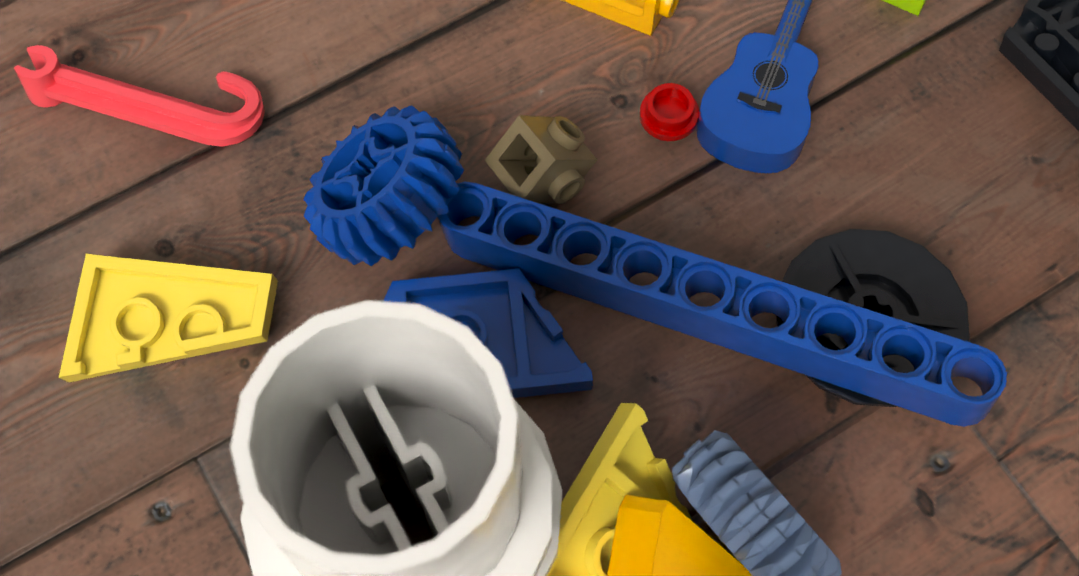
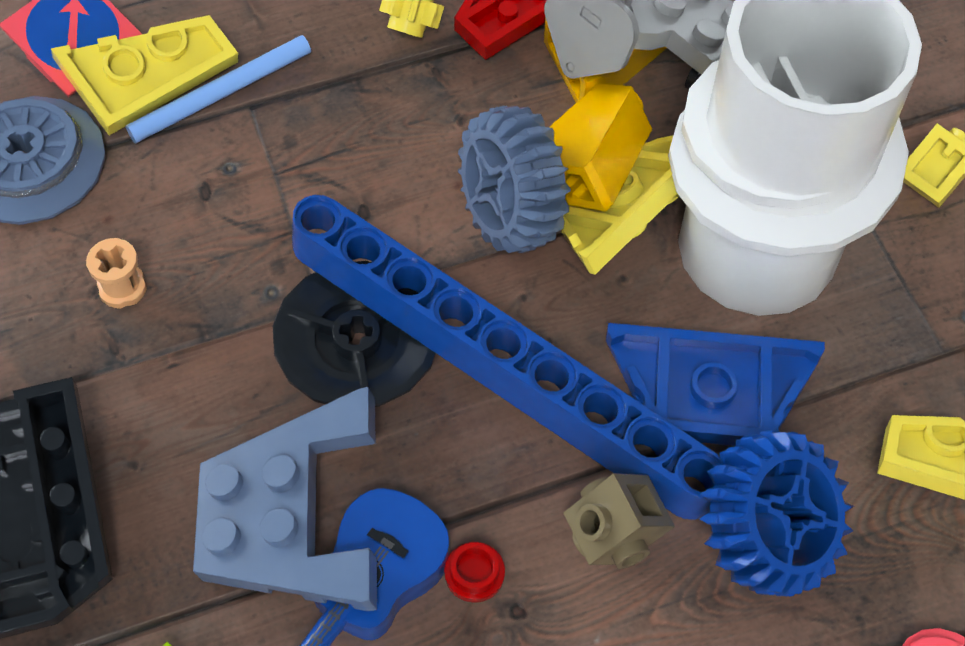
camera: 170 degrees left, 5 degrees down
(887, 109) = (262, 510): none -> sand blue wing

